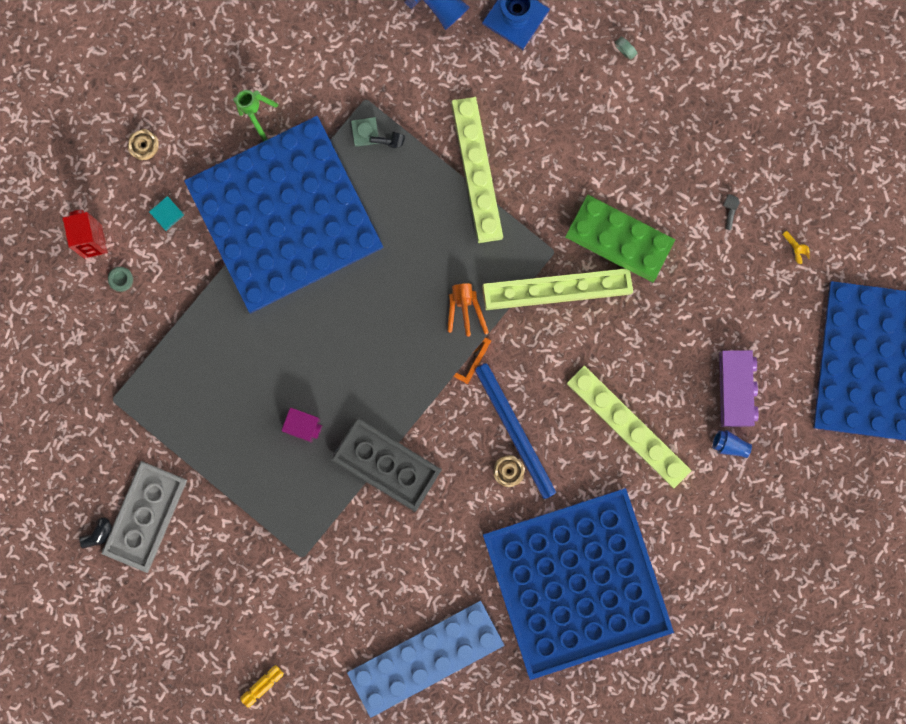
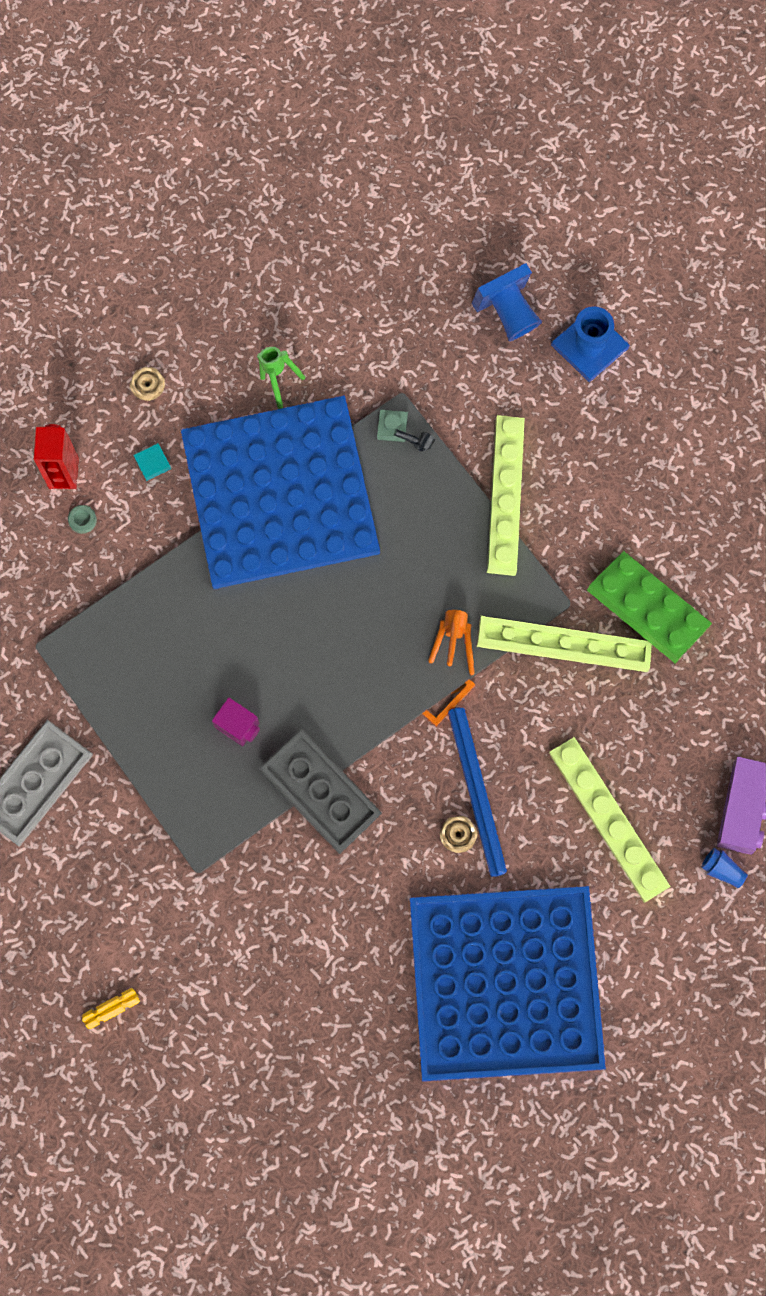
camera: 20 degrees right, 10 degrees down
(425, 659) = (307, 1026): medium blue plate -> none
(625, 48) = (704, 404): sand green tile -> none

